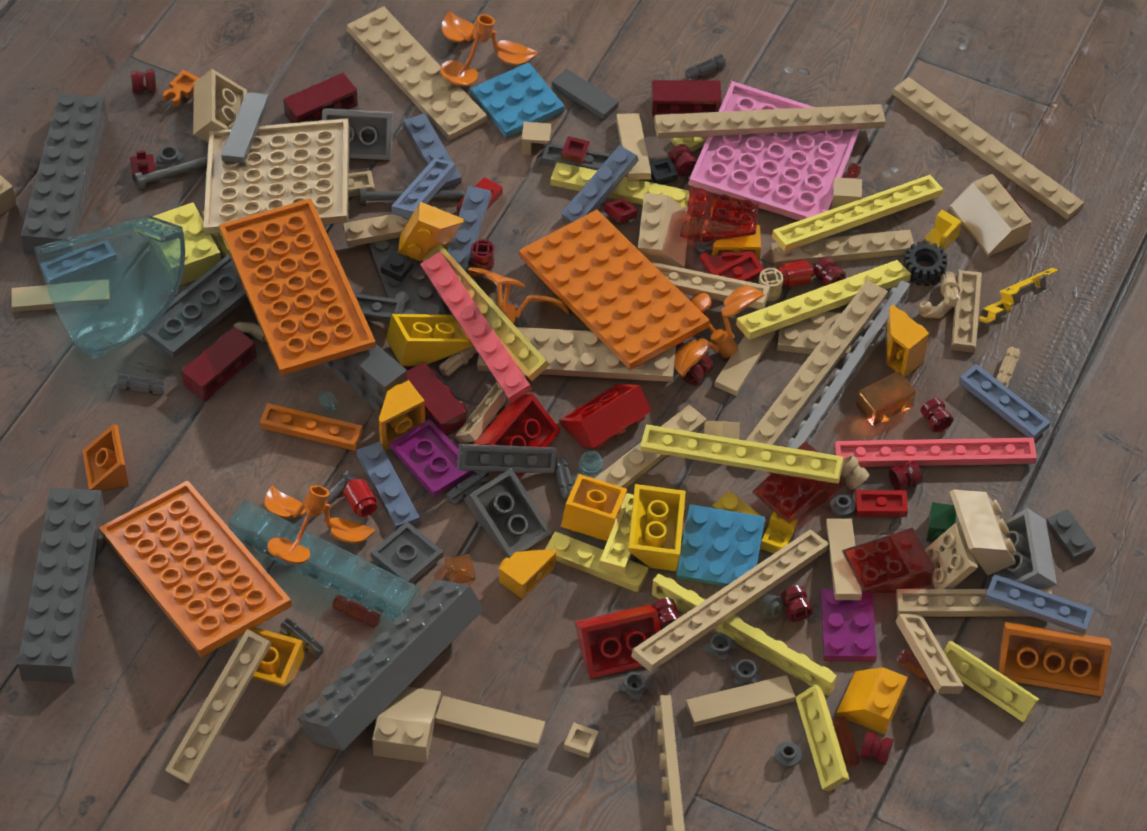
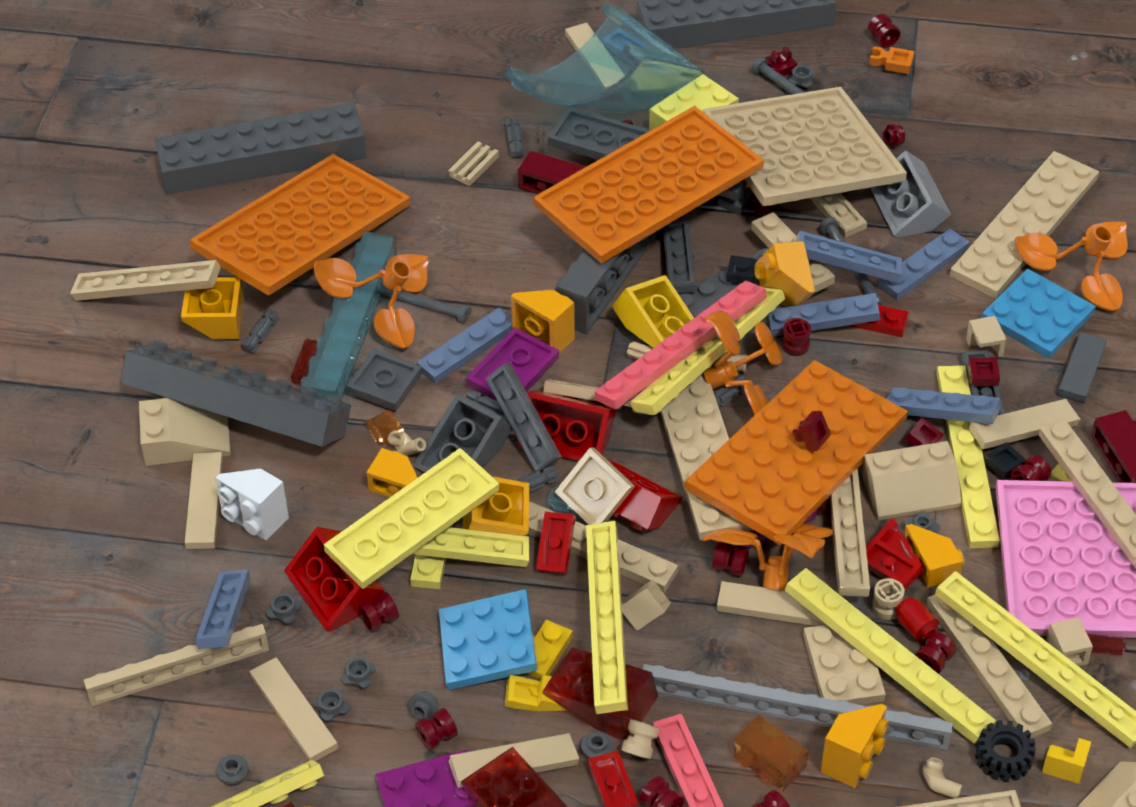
camera: 75 degrees right, 5 degrees down
(105, 461) = (414, 142): orange slope -> none
(149, 411) = (469, 162): none -> tan tile
(215, 103) = (883, 90): tan slope -> none
(245, 127) = (852, 105): tile -> none
(277, 114) = (894, 135): none -> dark red plate
(311, 426) = (512, 262): orange plate -> none
(327, 400) = (549, 269): clear light blue plate -> none
(329, 94) = (944, 162): dark red brick -> none
(360, 497) = (439, 325): red brick -> none
(439, 399) = (585, 347): dark red brick -> none
(489, 556) = (405, 444): none -> tan arm
(525, 674) = (253, 500): none -> white slope
(581, 740) = (198, 577): tan plate -> none
(605, 554) = (411, 518): none -> light yellow plate
(608, 428) = (594, 488): none -> tan plate
(614, 266) = (812, 431): none -> dark red tile
(634, 720) = (223, 609): none -> sand blue plate
(641, 472) = (555, 542): none -> red plate
(657, 526) = (485, 566): yellow slope -> none
(717, 216) = (948, 512): clear red slope -> none
(729, 600) = (405, 654): tan plate -> none
(751, 638) = (374, 695): light yellow plate -> none
(818, 365) = (776, 669): tan plate -> none
(950, 289) = (972, 783): tan axle -> none

